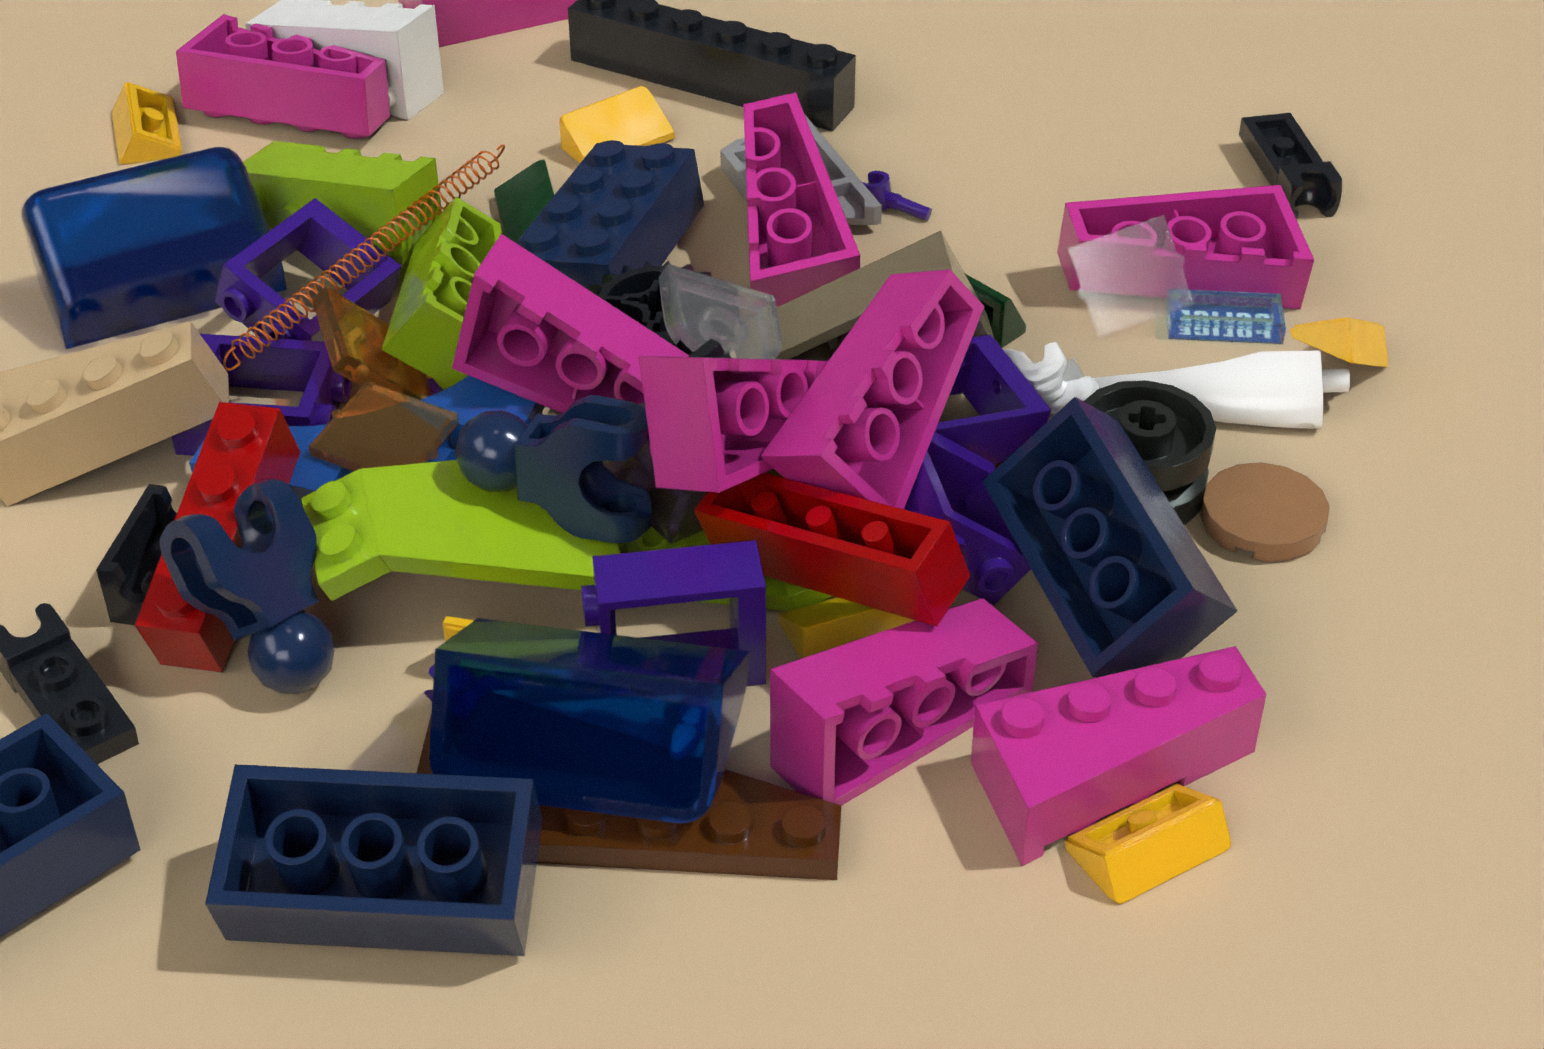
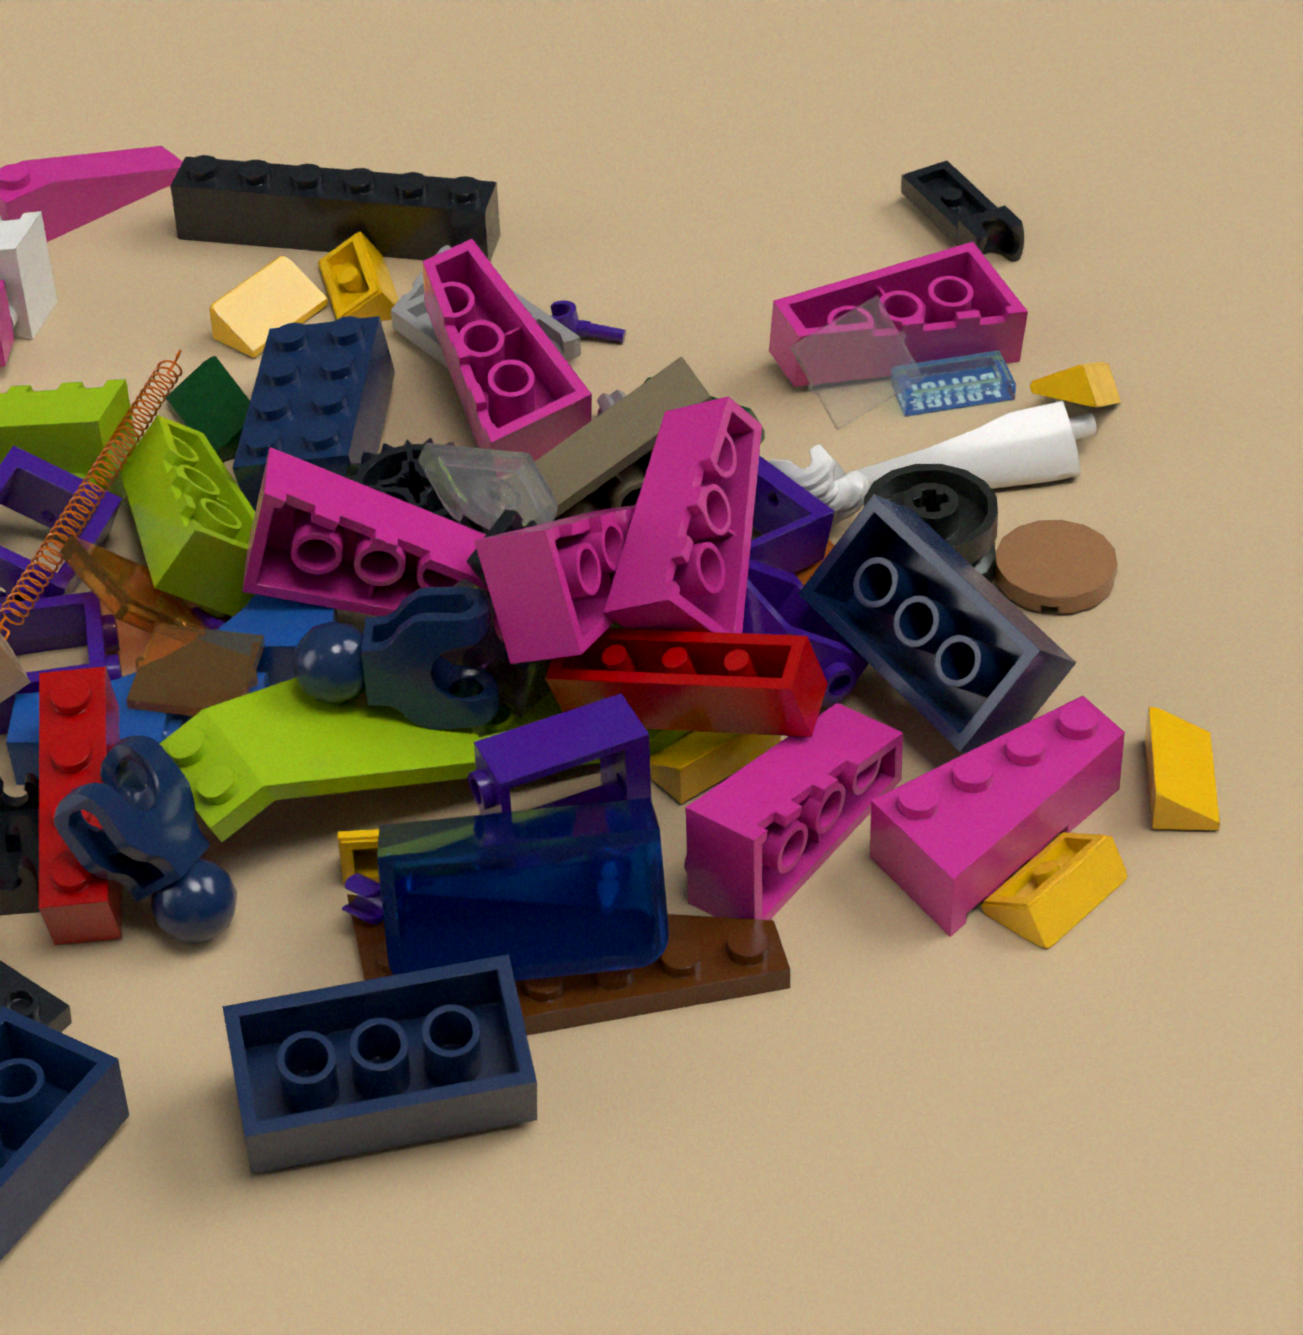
camera: 15 degrees left, 0 degrees up
(709, 120) = (358, 280): none -> yellow slope
(1322, 751) = (1180, 773): none -> yellow slope

